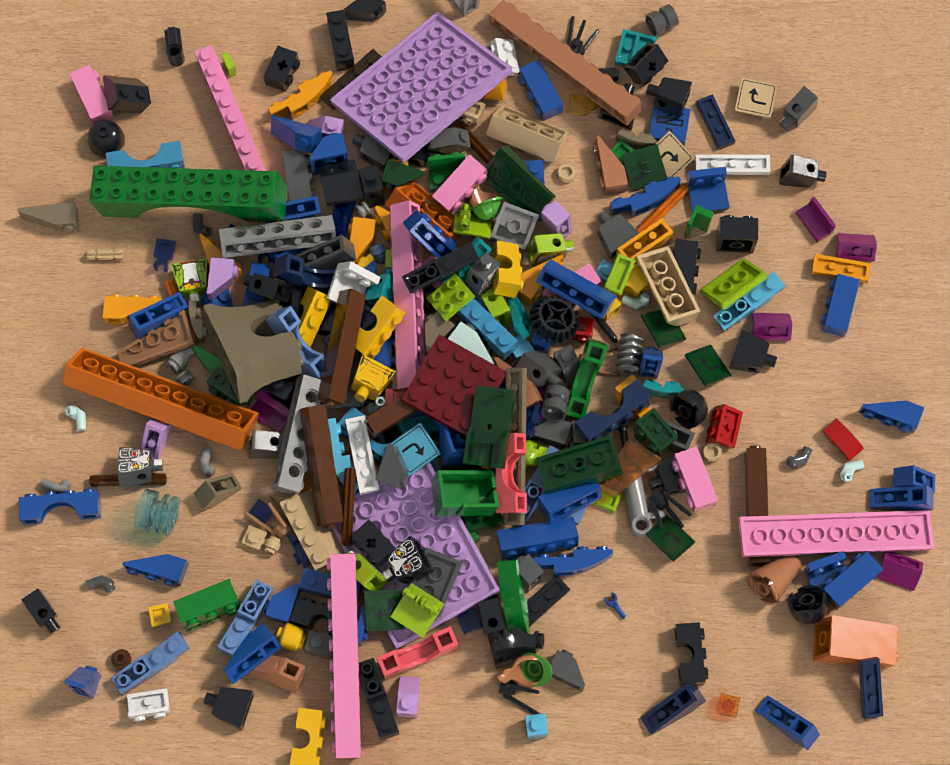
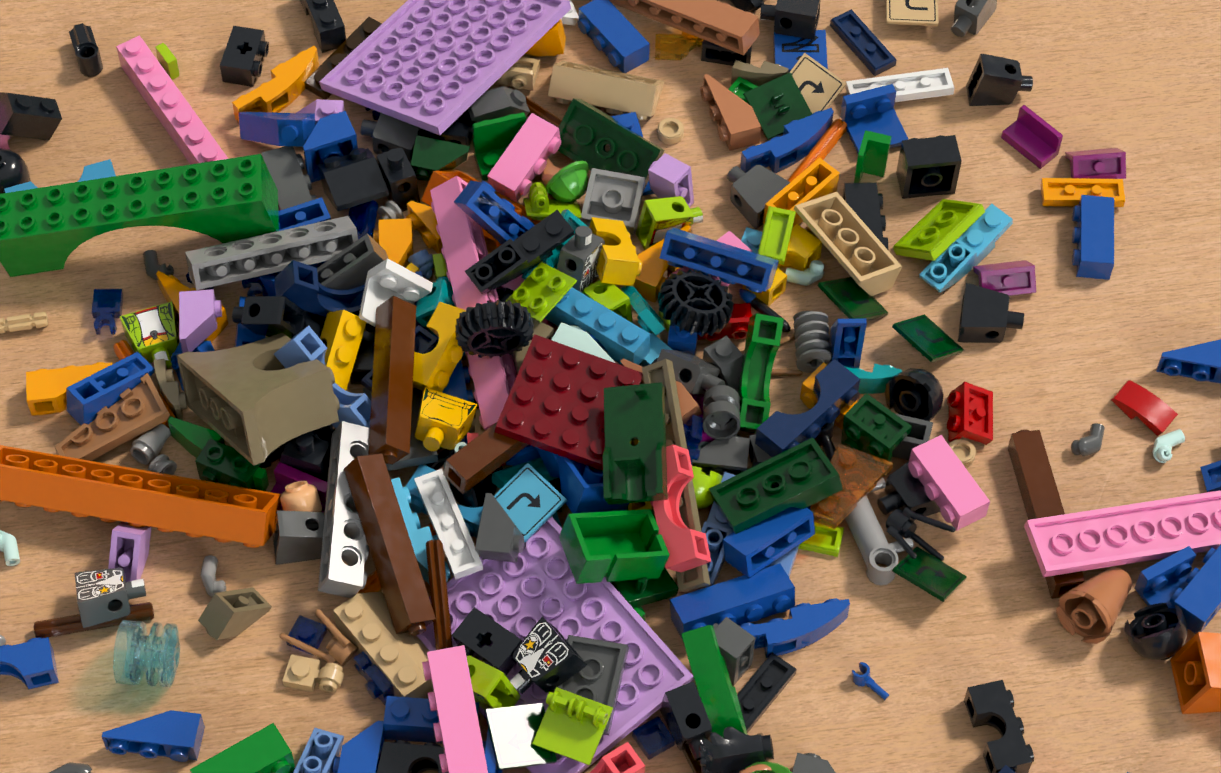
camera: 10 degrees left, 15 degrees down
(270, 420) = (301, 497): none -> light nougat head
(413, 326) = (494, 329): none -> black gear

